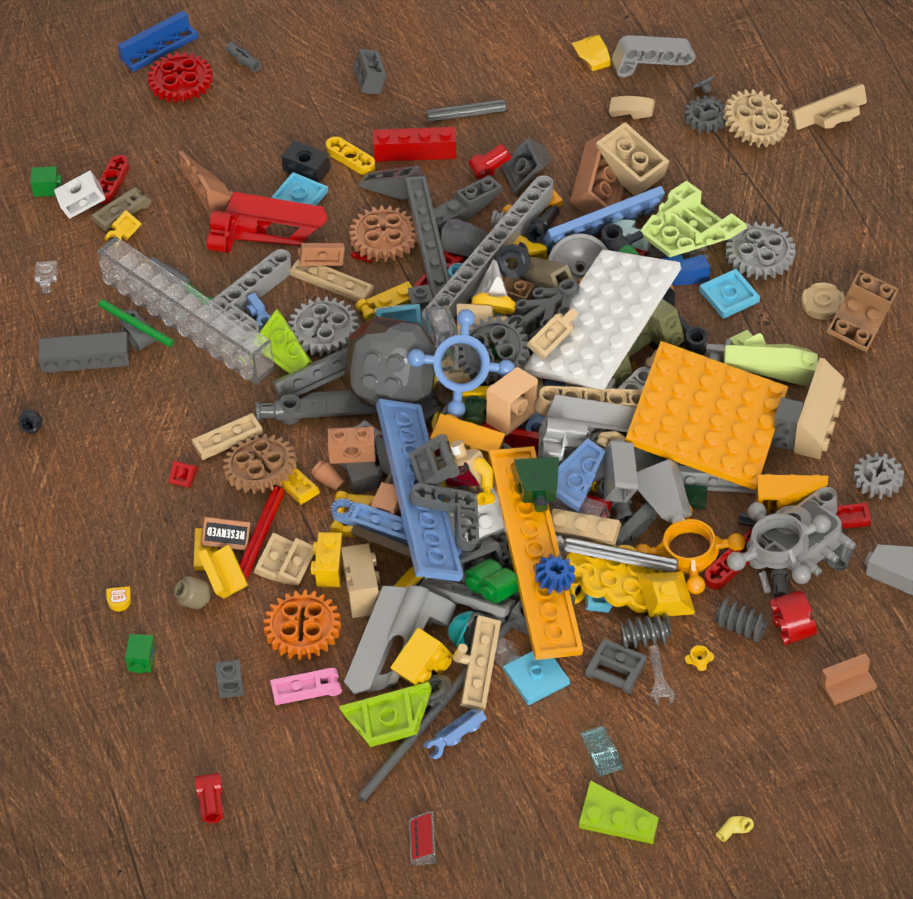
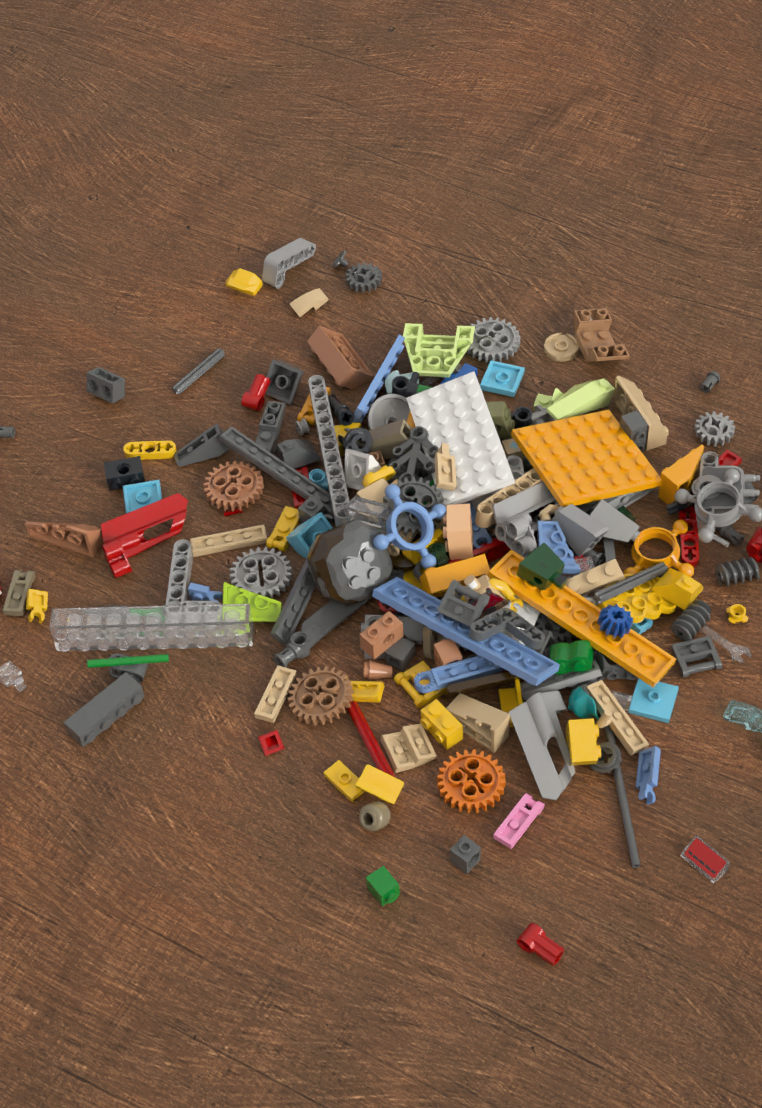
camera: 40 degrees left, 0 degrees up
(30, 421) = (117, 786): black piece -> none
(119, 598) = (321, 861): yellow tile -> none
(224, 532) = (350, 758): panel -> none
(321, 254) = (207, 527): nougat panel -> none
(389, 715) = (595, 797): lime wing -> none
(414, 144) = (190, 413): red brick -> none
(632, 159) = (353, 331): tan slope -> none
(755, 118) = (398, 260): tan gear -> none
(831, 109) = (439, 228): tan bracket -> none

